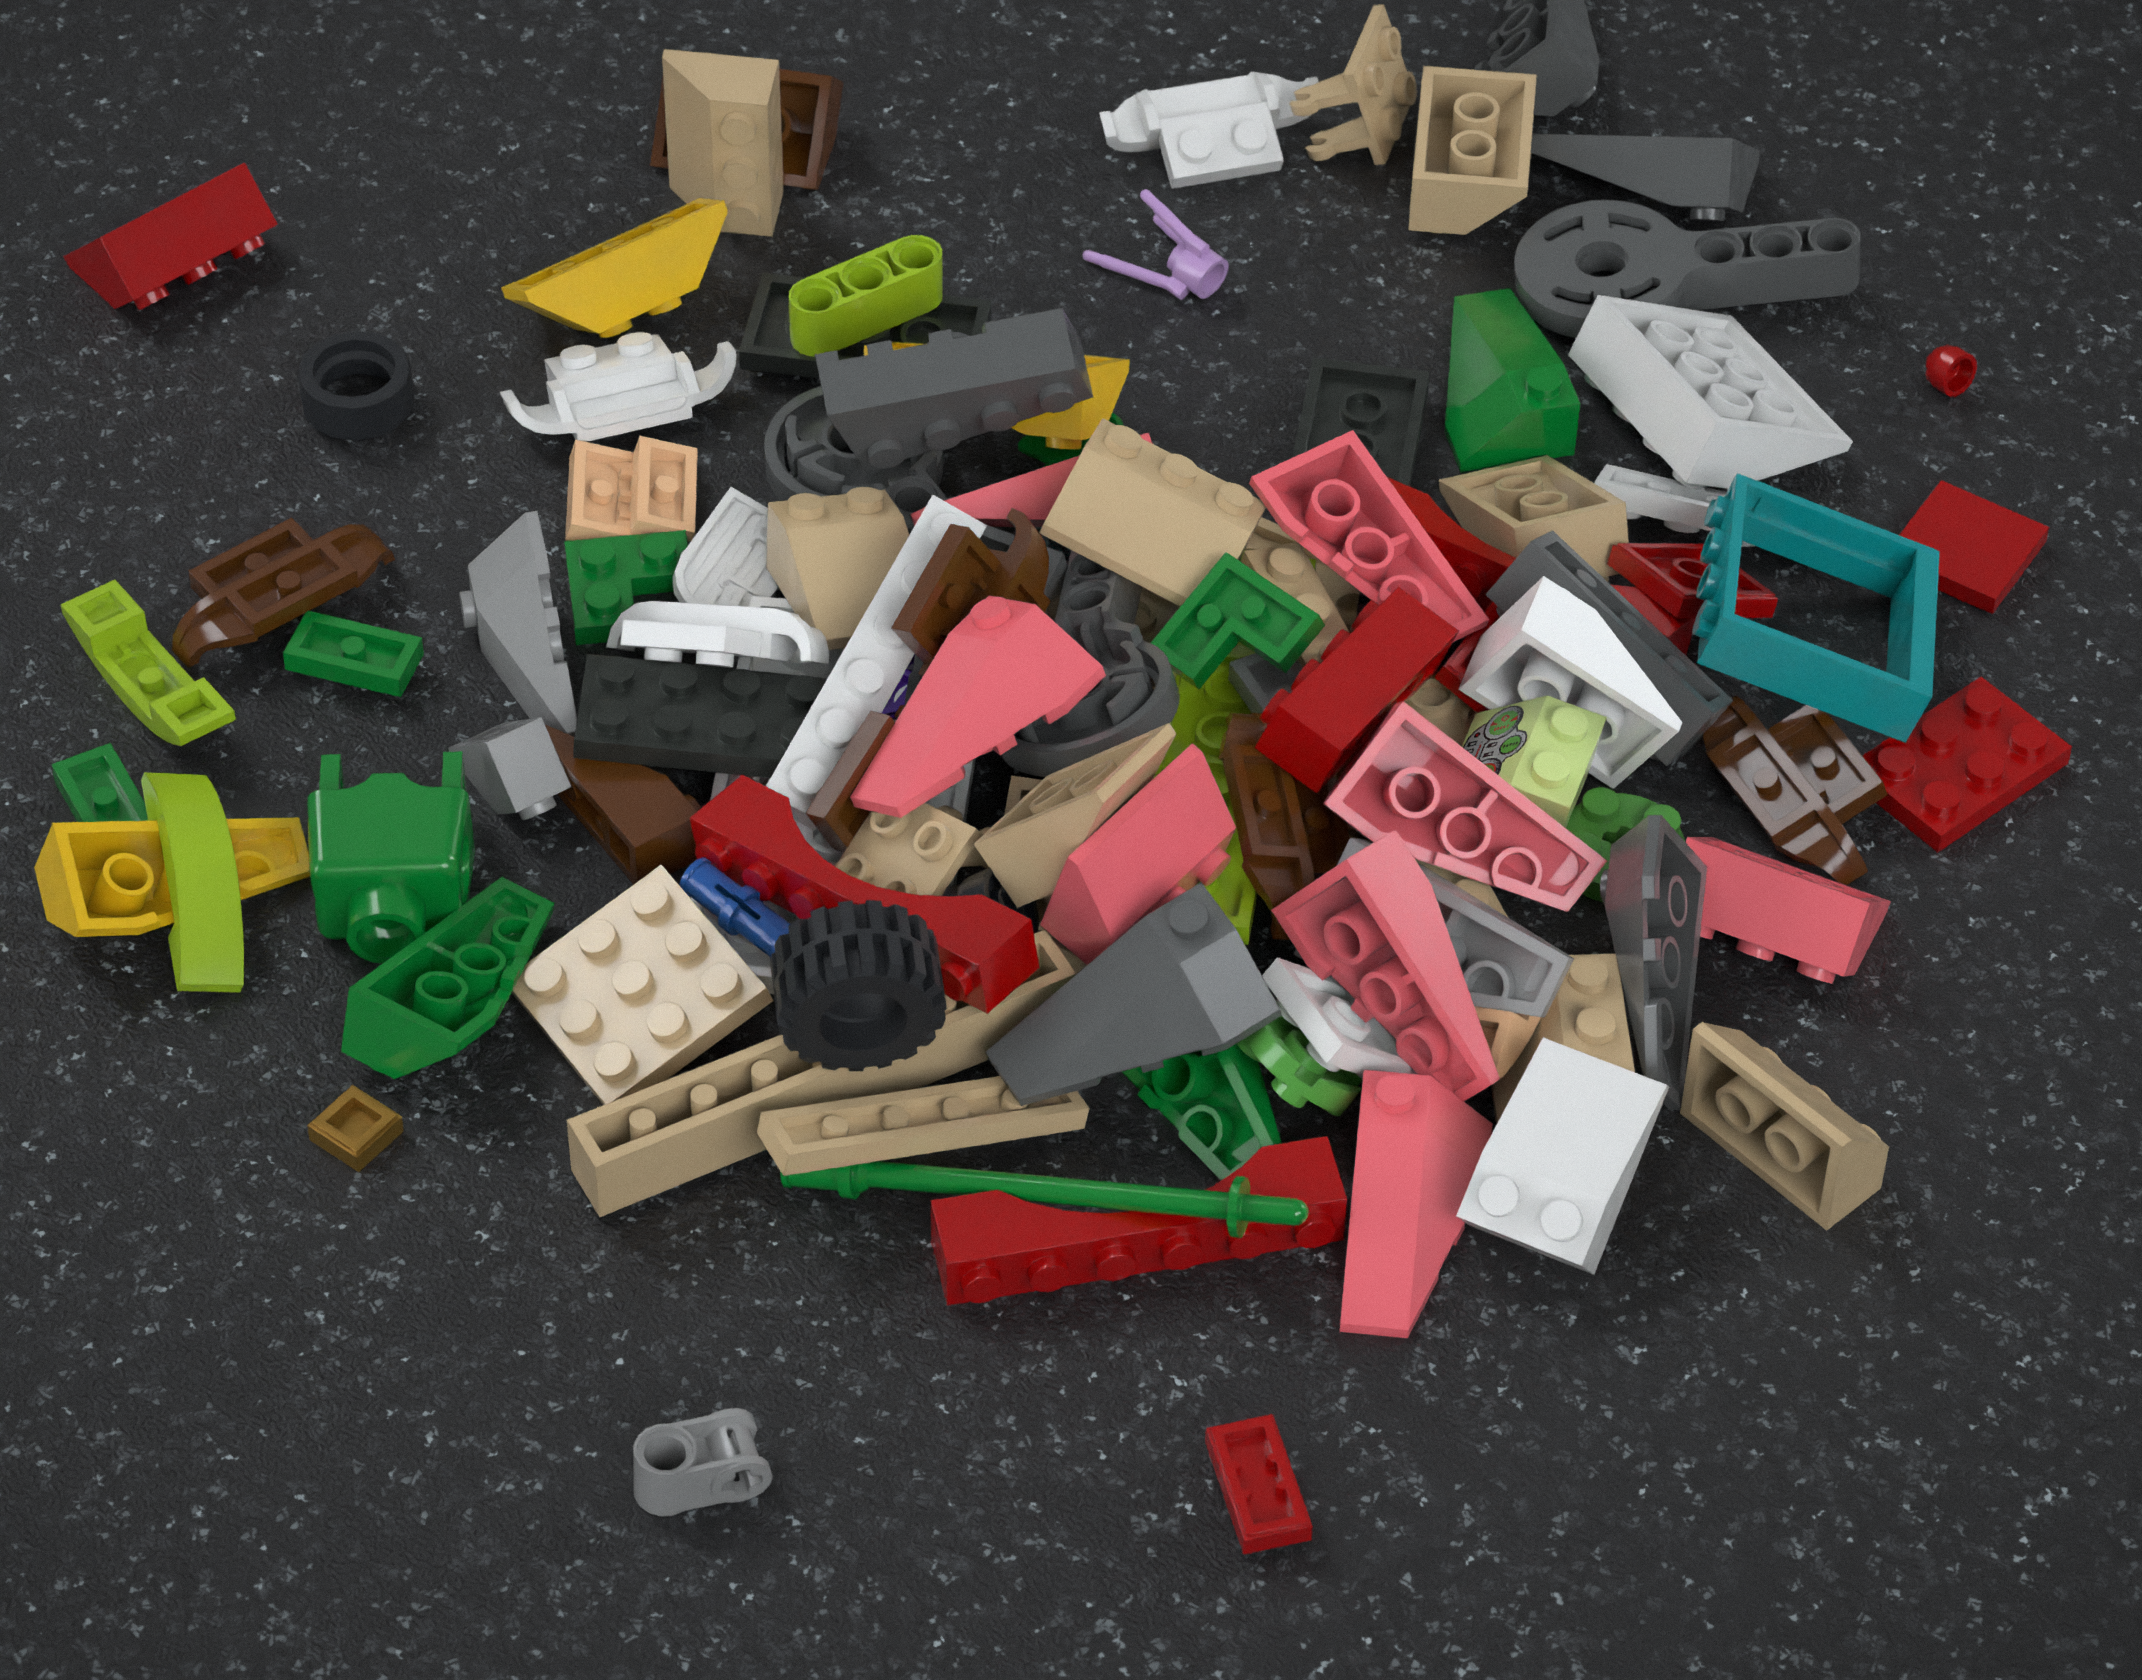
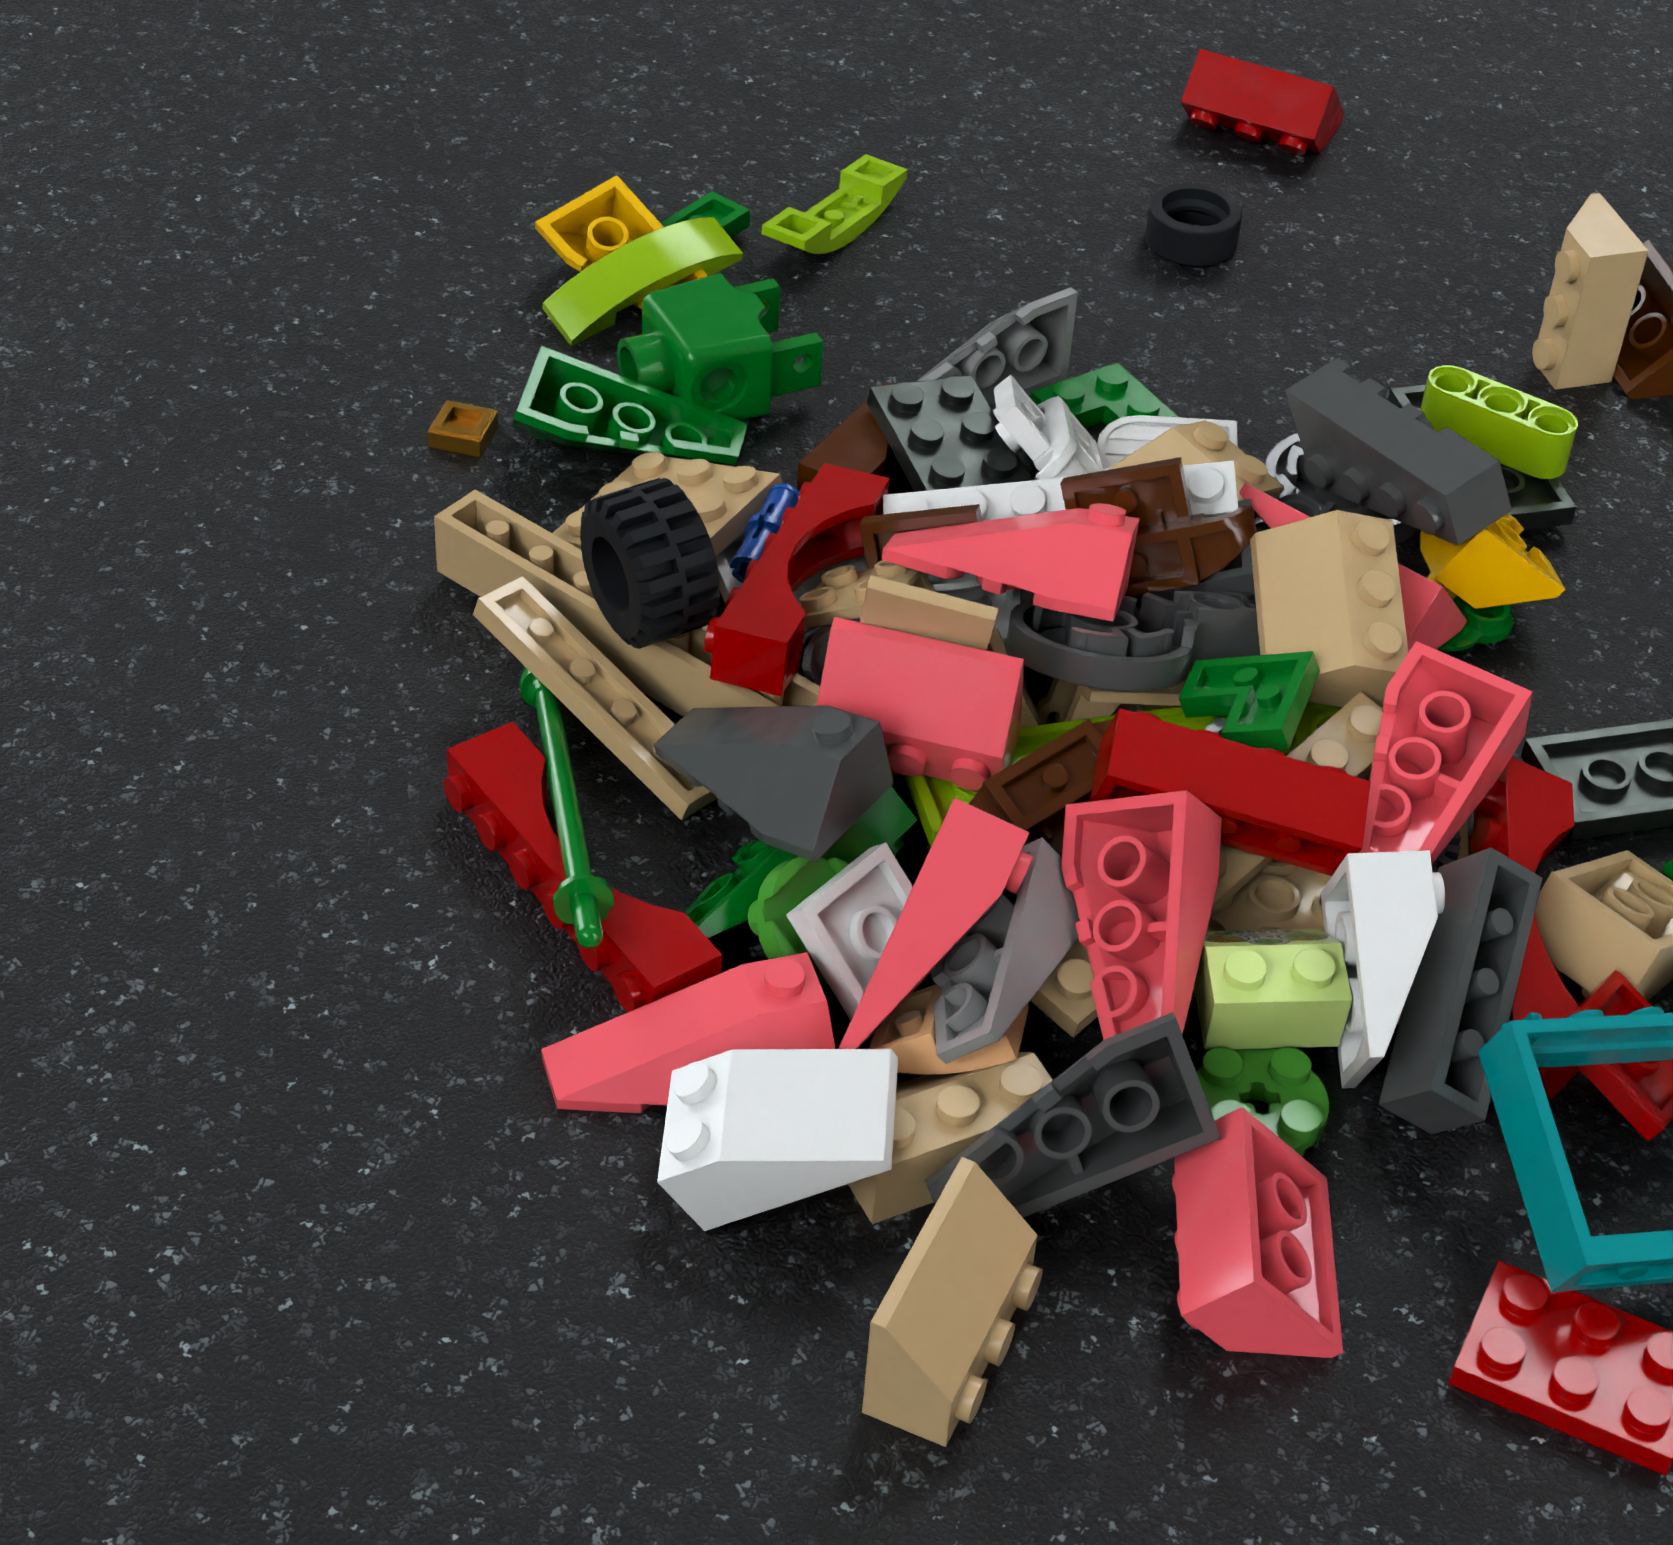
camera: 65 degrees right, 5 degrees down
(272, 583) = (963, 237): reddish brown plate -> none
(353, 653) = (924, 296): green plate -> none
(515, 767) = (846, 385): light grey slope -> none
(621, 388) = (1292, 336): white plate -> none
(627, 273) = (1410, 304): yellow wedge -> none
(629, 491) = (1203, 381): light nougat slope -> none
(696, 1463) = (196, 678): light grey piece -> none
(1258, 1484) = (317, 1034): red plate -> none
(1797, 783) = (1430, 1219): reddish brown plate -> none

